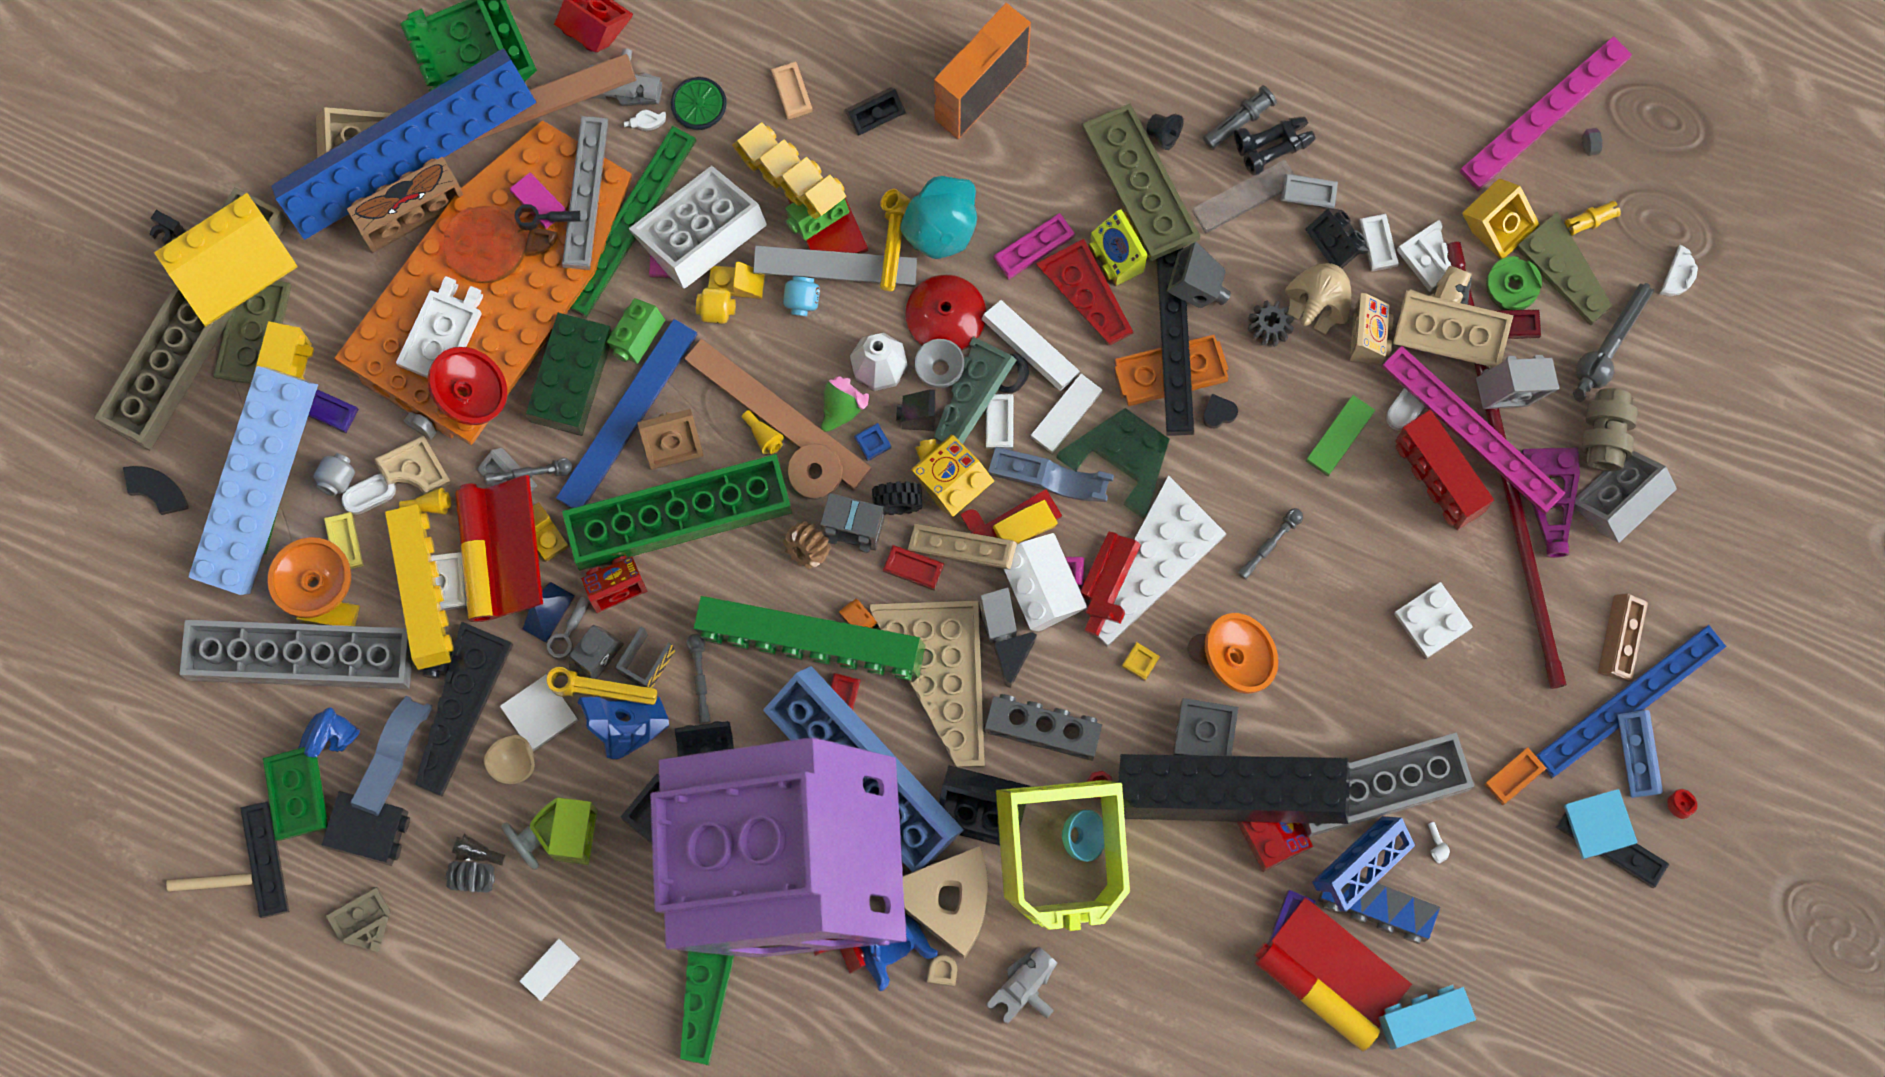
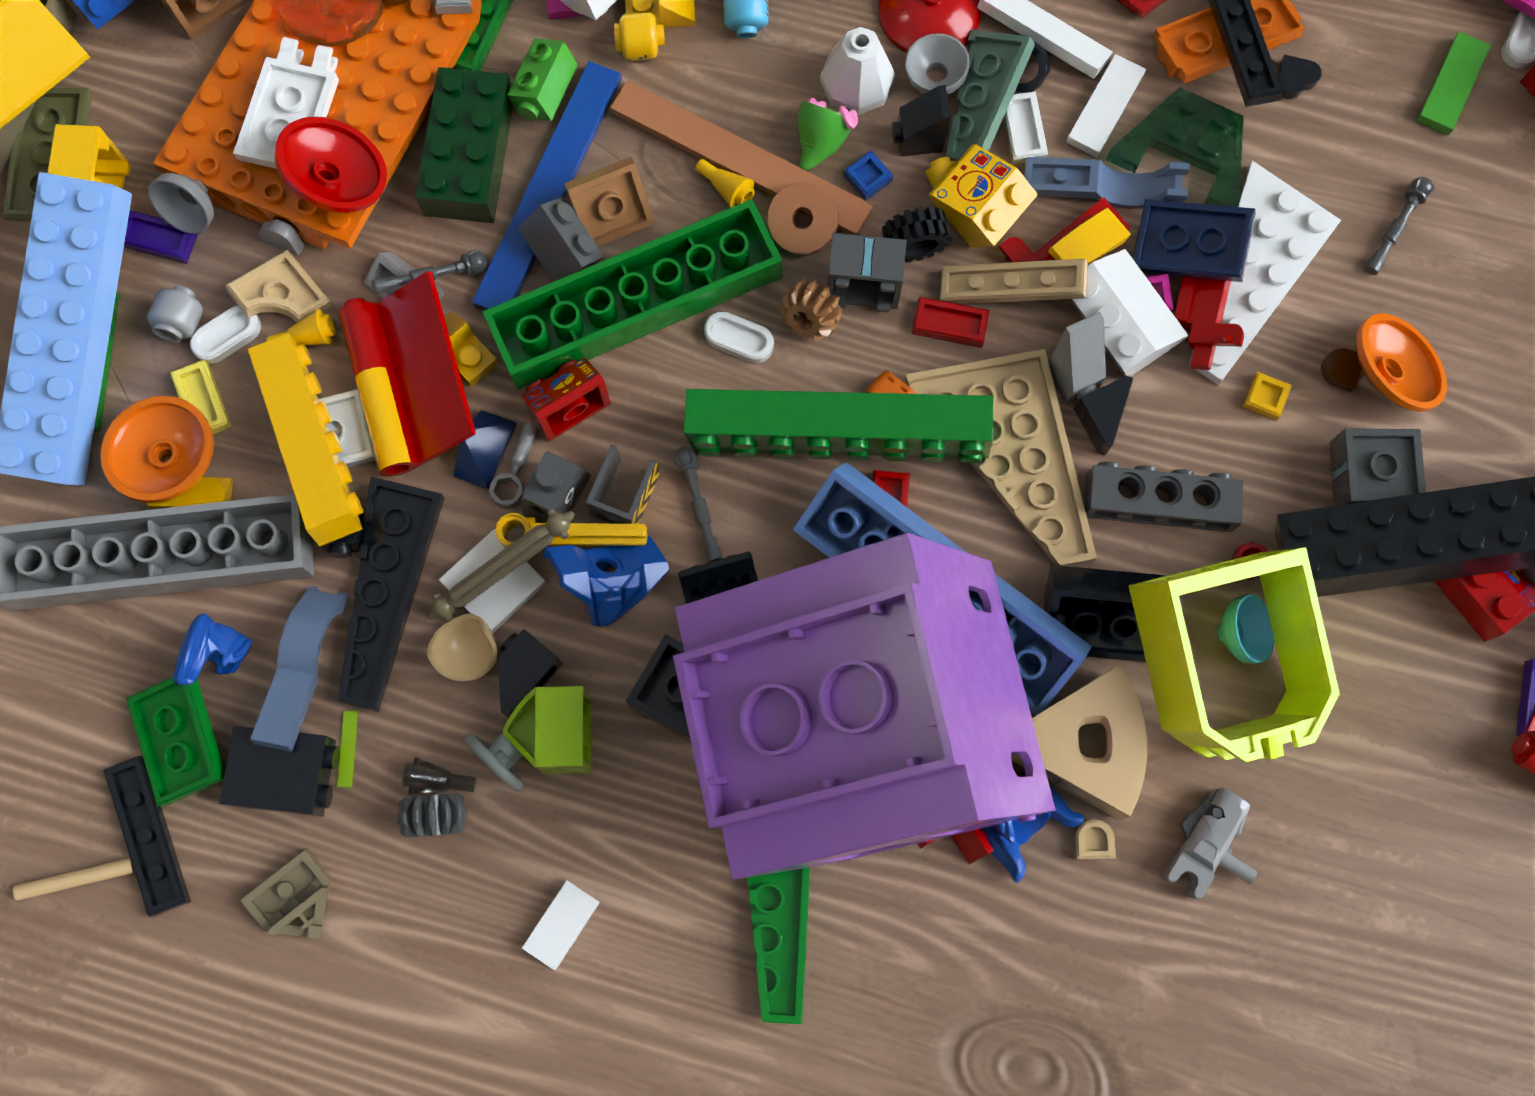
camera: 10 degrees left, 0 degrees up
(352, 391) = (182, 202): none -> light grey piece
(416, 818) = (347, 750): none -> lime piece
(546, 704) = (501, 565): none -> dark tan wheel
(551, 781) = (522, 668): none -> black slope
(628, 463) = (560, 239): none -> dark grey brick
(751, 555) = (739, 337): none -> white tile
(1105, 534) = (1194, 240): none -> dark blue tile

